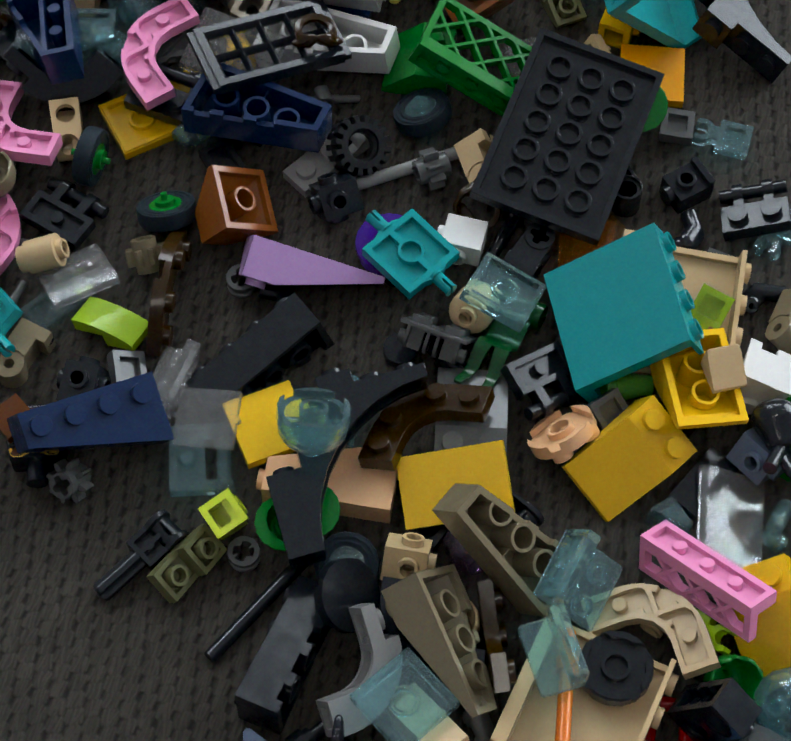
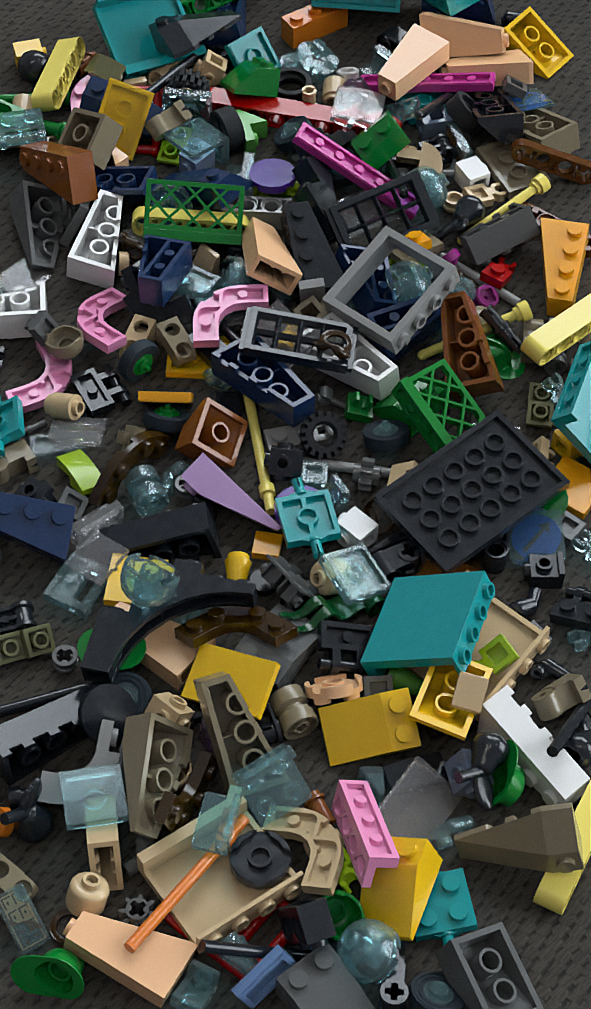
camera: 30 degrees right, 10 degrees down
(118, 113) = (175, 341): none -> dark tan leg
(152, 185) = (165, 397): none -> light orange tile
(204, 309) = (146, 490): none -> clear light blue wheel
(214, 276) = (171, 474): none -> clear light blue arm
(224, 514) = (65, 624): neon yellow brick -> none
(331, 239) = (266, 487): none -> light yellow bar
(365, 350) = (237, 565): none -> yellow cone
(369, 93) = (359, 407): none -> green tile
(376, 196) = (314, 473): none -> clear light blue plate
(376, 306) = (265, 544): none -> light orange tile
(412, 199) = (338, 492): none -> clear light blue slope
(539, 485) = (293, 712): none -> dark tan wheel
(631, 574) = (318, 805): none -> dark orange pin
(659, 151) = (537, 534): none -> clear light blue piece

